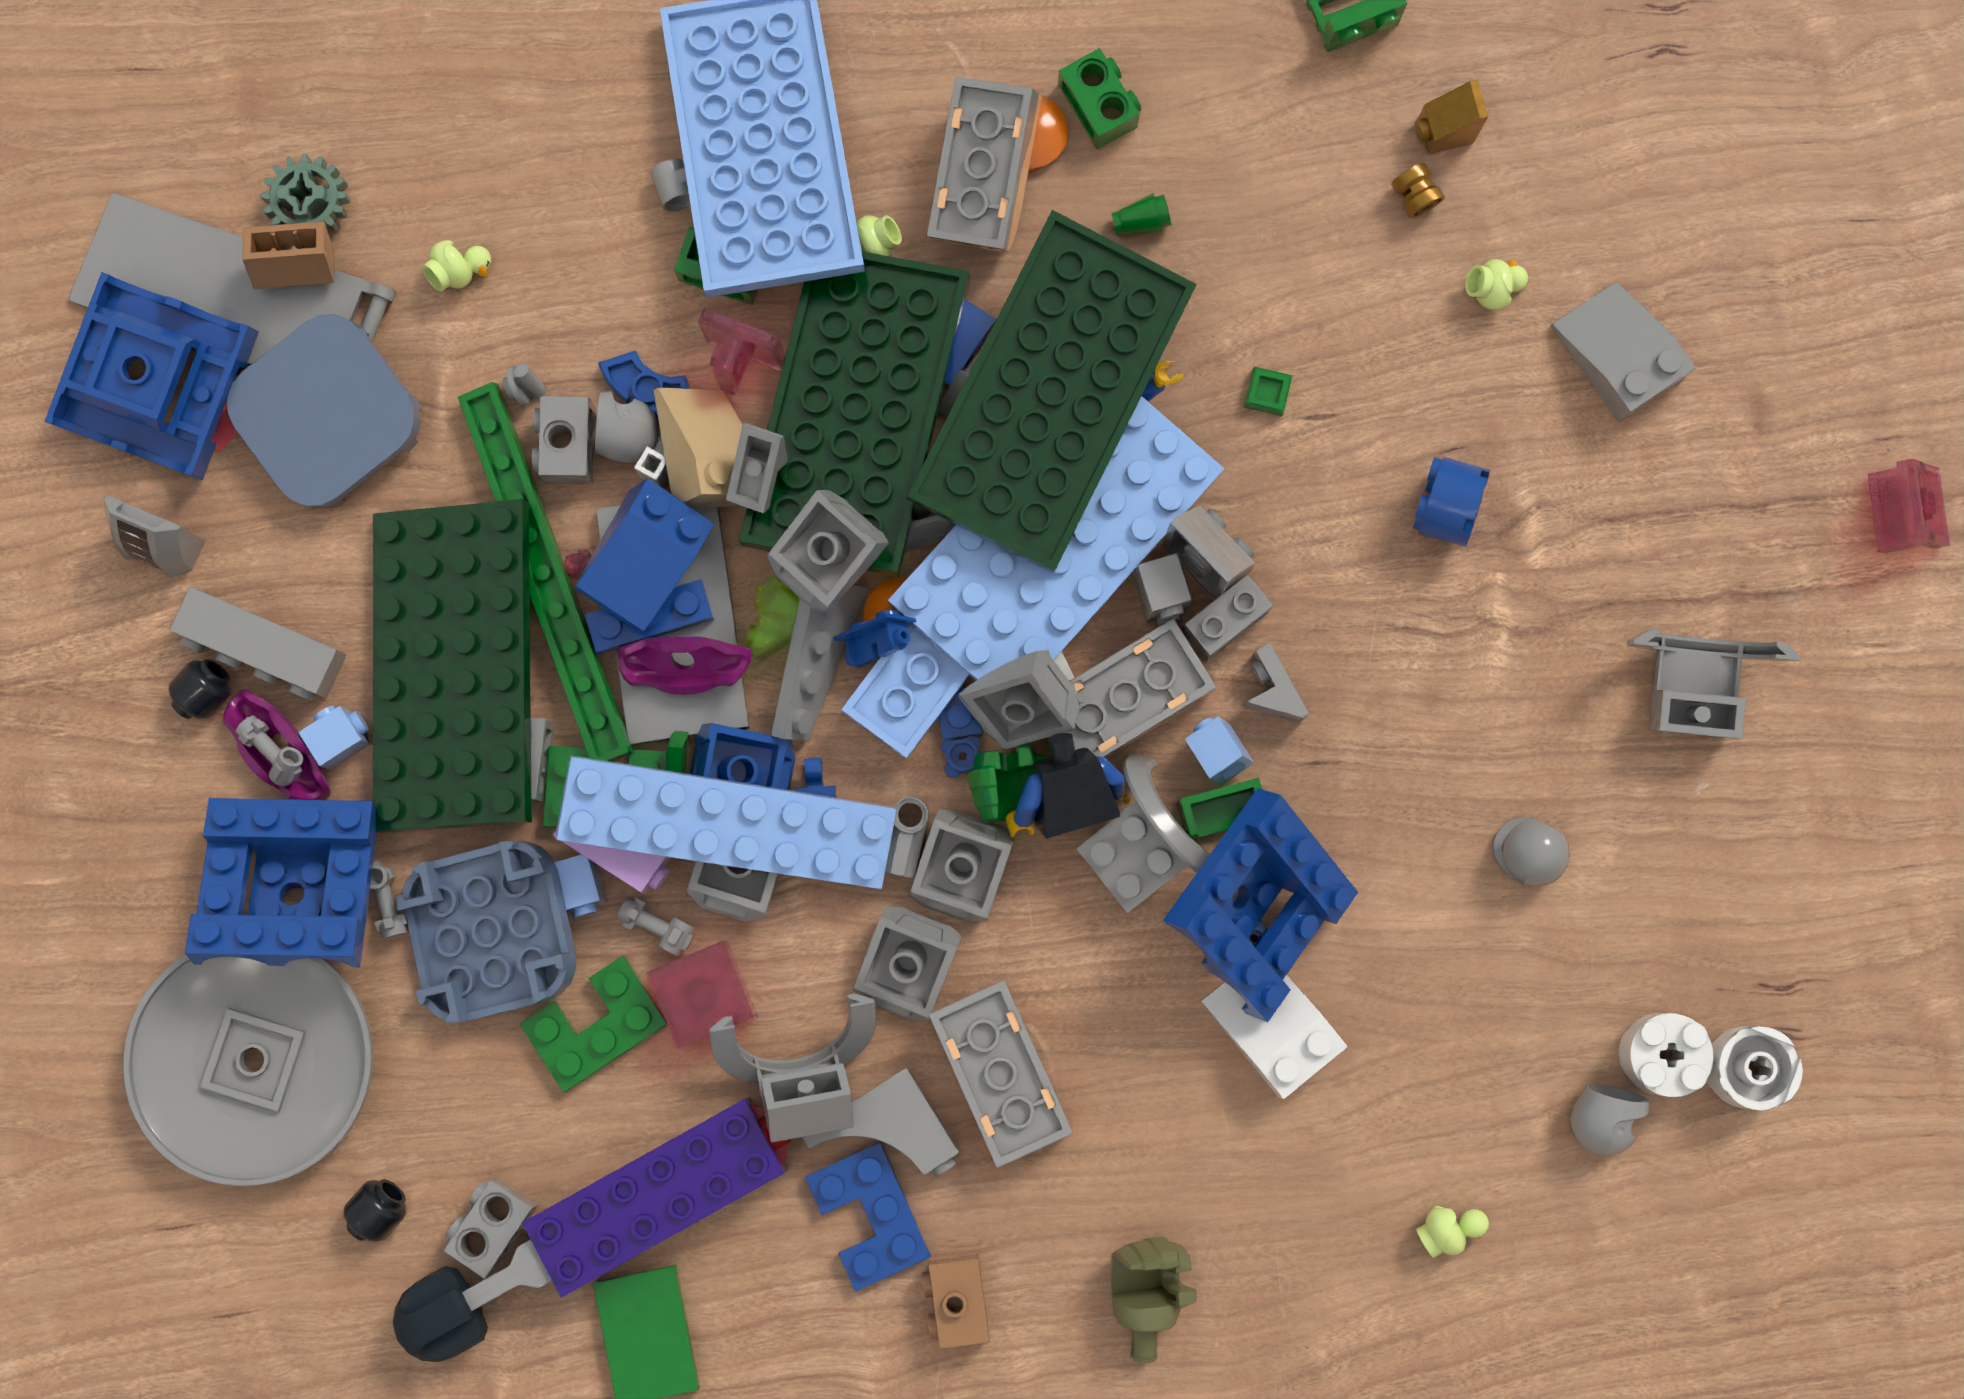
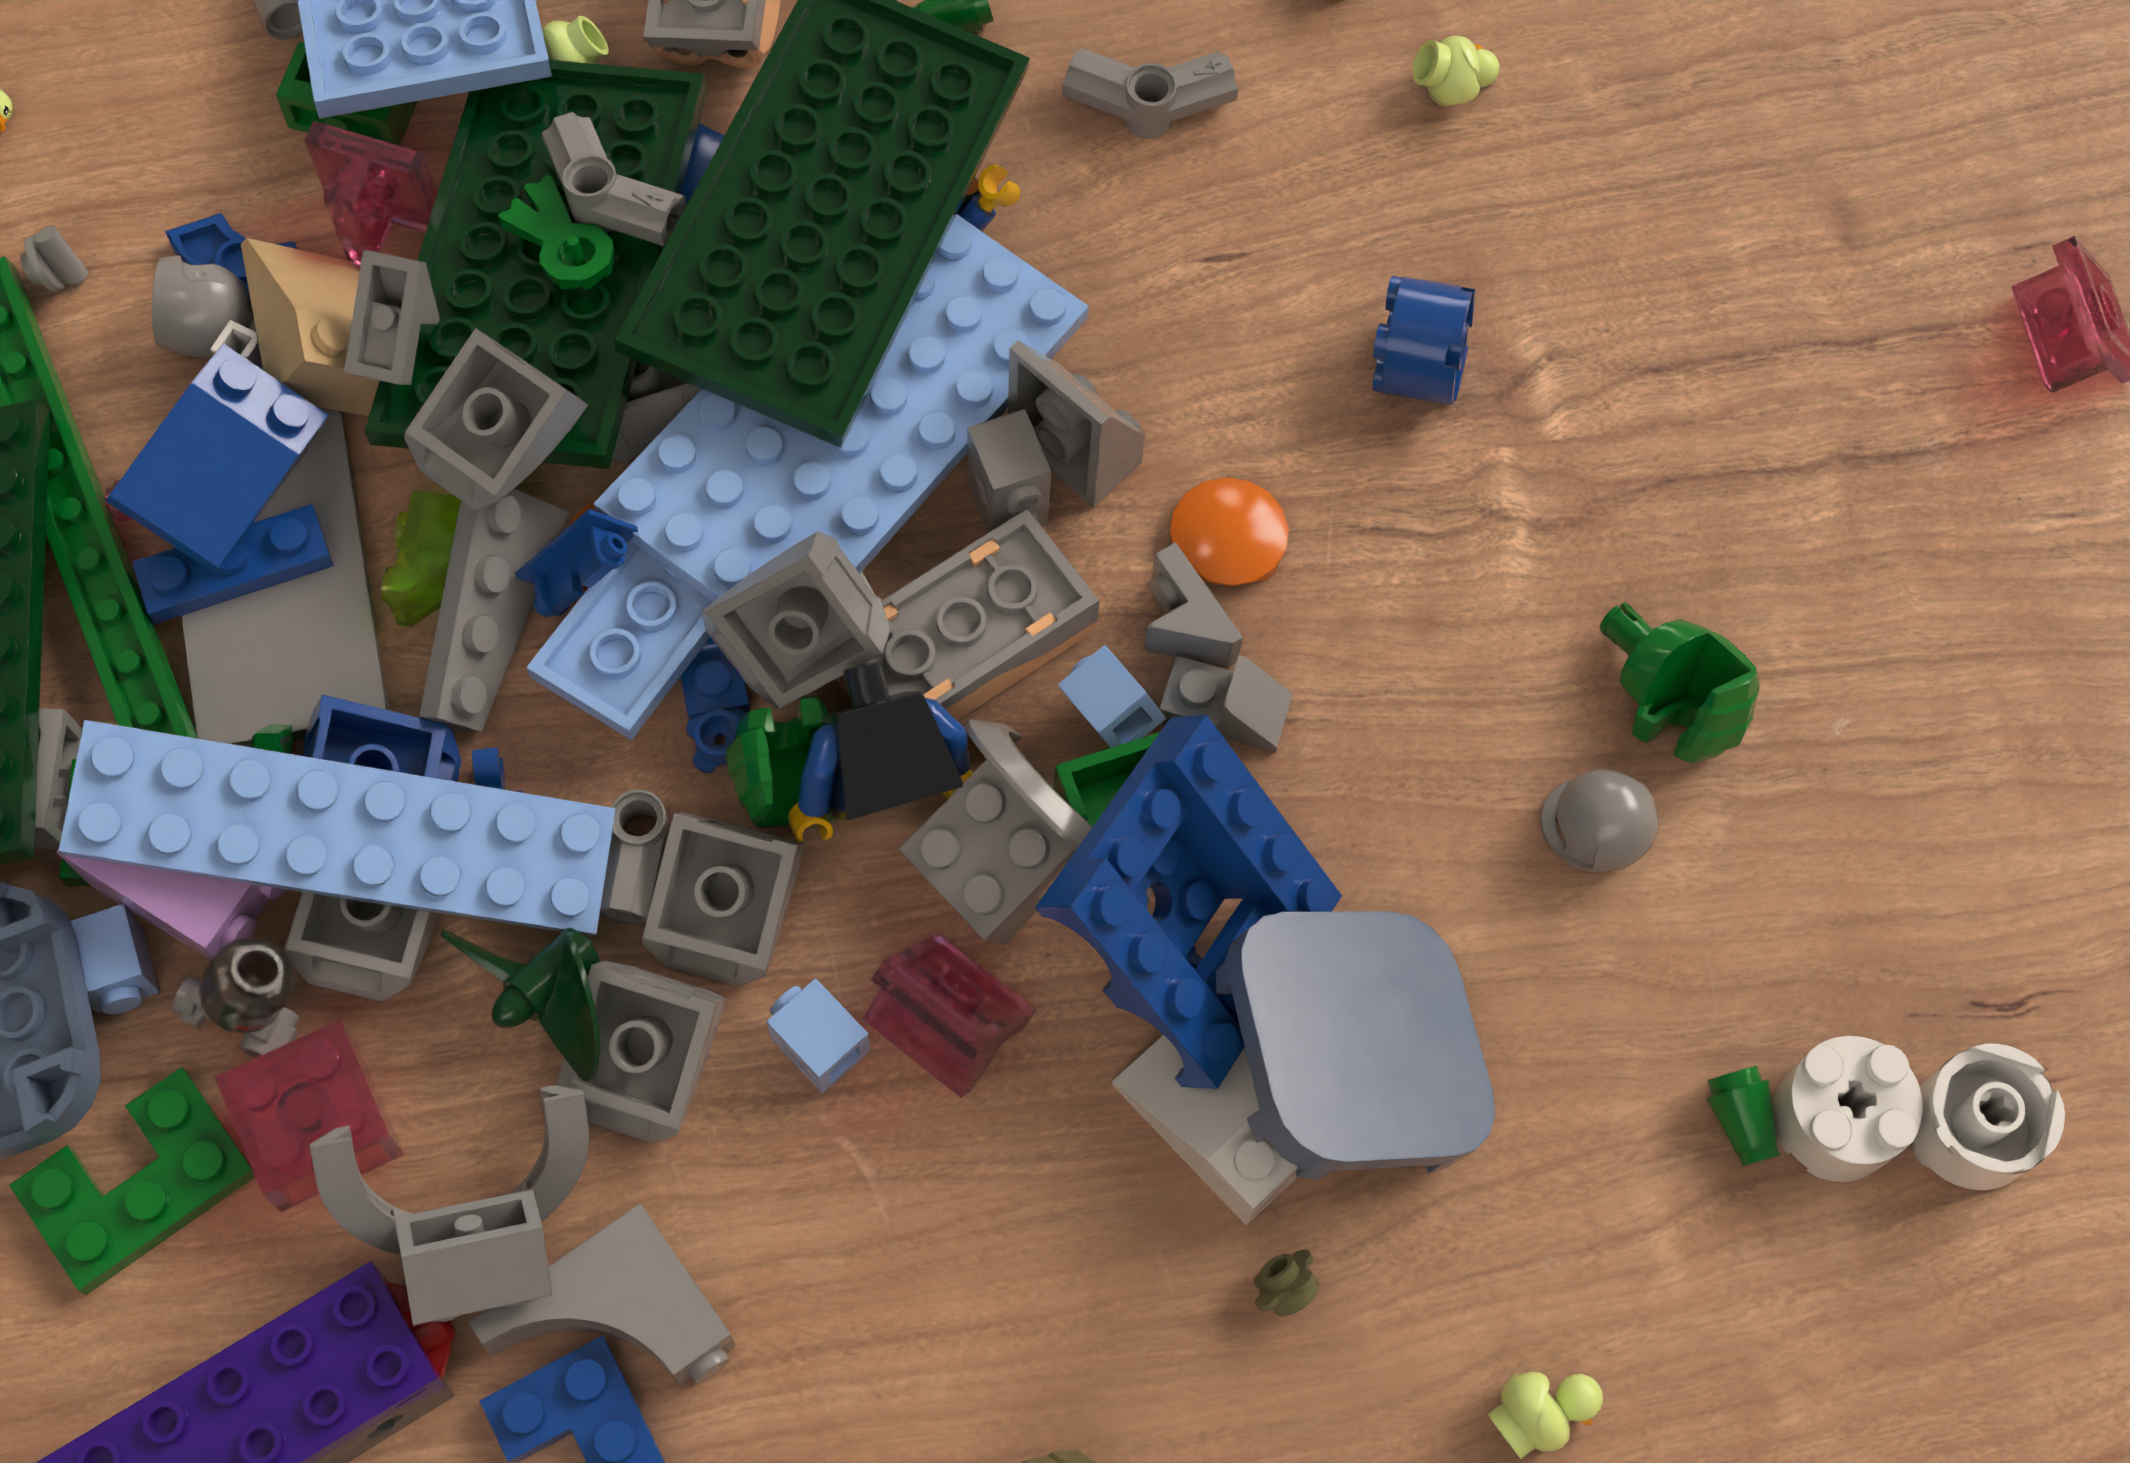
camera: 10 degrees left, 15 degrees down
(574, 461) = (123, 360): light grey brick -> none
(652, 664) = (233, 622): magenta piece -> none
(665, 914) = (246, 985): none -> clear smoke head
(850, 926) = (550, 990): none -> dark green piece
(878, 416) = (570, 252): none -> green piece
(916, 383) = (601, 195): none -> light grey piece
(1000, 1074) = (795, 1203): light grey piece -> none
(1017, 963) = (817, 1034): none -> light blue brick
(1101, 951) = (944, 1011): none -> clear pink bracket
(1227, 618) = (1112, 516): light grey brick -> none
(1268, 391) = (1146, 225): green tile -> none
(1294, 749) = (1240, 703): none -> light grey slope
(1300, 1140) = (1286, 1283): none -> olive plate
(1301, 288) = (1176, 89): none -> light grey piece
(1306, 627) = (1230, 531): none -> orange dish
(1359, 997) = (1358, 1042): none -> sand blue tile
(1599, 756) = (1685, 679): none -> green piece
(1601, 1050) = (1745, 1113): none -> green cone
(1605, 1117) = (1765, 1215): light grey helmet -> none
(1622, 350) = (1647, 149): light grey slope -> none
(1700, 681) = (1816, 569): light grey piece -> none

